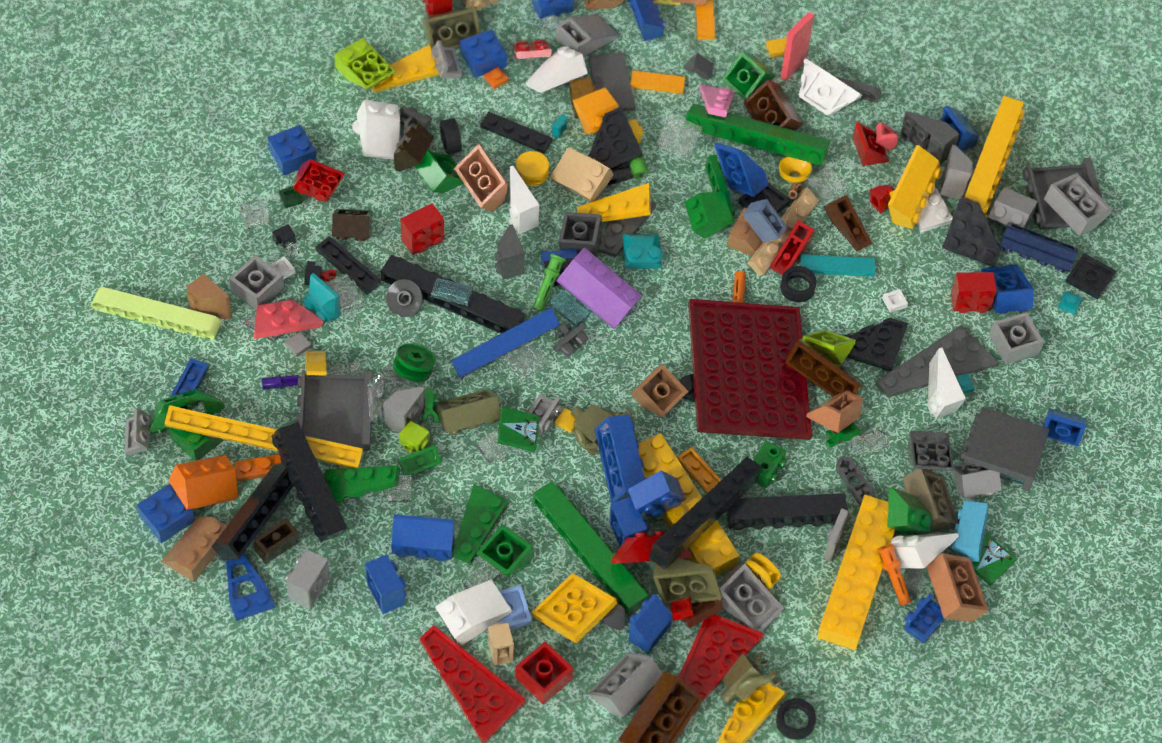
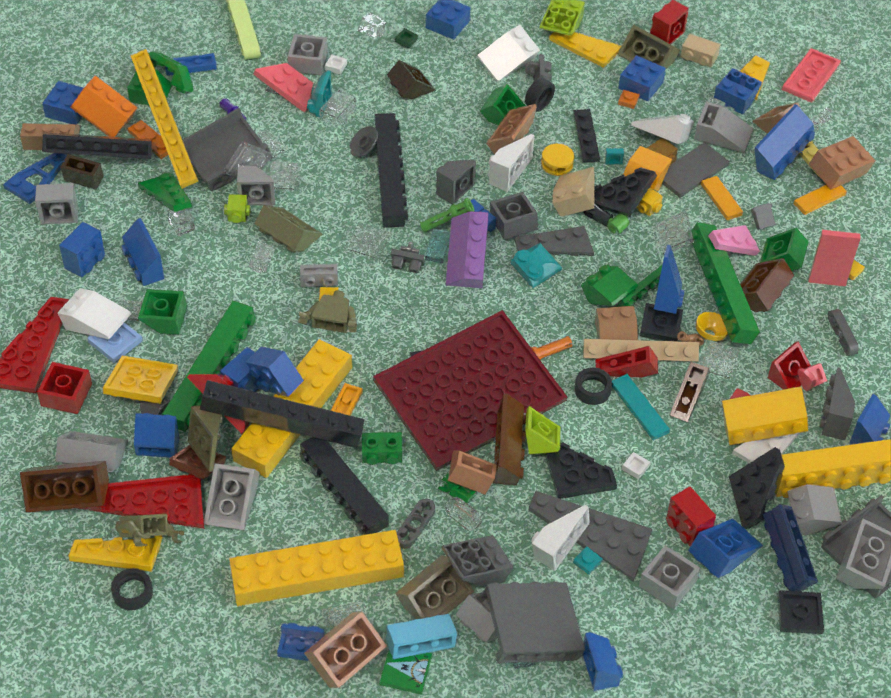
camera: 60 degrees right, 5 degrees down
(137, 432) = (122, 55): light grey bracket -> none
(208, 298) = (270, 33): medium nougat slope -> none
(286, 238) = (366, 53): black piece -> none
(298, 344) = (275, 106): light grey tile -> none
(309, 482) = (140, 160): black brick -> none
(315, 362) = (255, 116): yellow slope -> none
(317, 180) = (425, 38): red slope -> none
(317, 270) = (344, 83): black piece -> none
(348, 265) = (370, 98): black plate -> none
(412, 147) = (501, 74): dark brown slope -> none
(414, 362) = (304, 173): green wheel -> none
(419, 460) = (218, 221): green plate -> none
(422, 229) = (434, 118): red brick -> none
(430, 400) = (277, 198): green plate -> none
(446, 61) = (613, 61): light grey bracket -> none
(452, 291) = (385, 160): clear light blue plate -> none
(479, 519) = (195, 283): green wing -> none
(500, 643) = (72, 345): tan brick -> none
(505, 342) = (368, 217): blue tile -> none
(518, 429) = (286, 262): green tile -> none
(534, 49) = (672, 102): red plate -> none
(619, 455) = (307, 331): blue slope -> none
(623, 205) = (565, 228): yellow wing -> none
(659, 391) = (398, 336): medium nougat slope -> none
(682, 609) = (183, 449): red tile -> none
(764, 220) = (625, 321): sand blue brick -> none
(764, 570) = (263, 491): yellow head -> none
(825, 90) = (817, 308): white wing -> none
(835, 534) = (337, 526): light grey plate -> none
(892, 565) = (330, 583): orange pin -> none
(907, 513) = (396, 568): green slope -> none
(921, 549) = (364, 595): white slope -> none
(956, 174) = (812, 436): light grey slope -> none
(1069, 302) = (755, 608): teal plate -> none

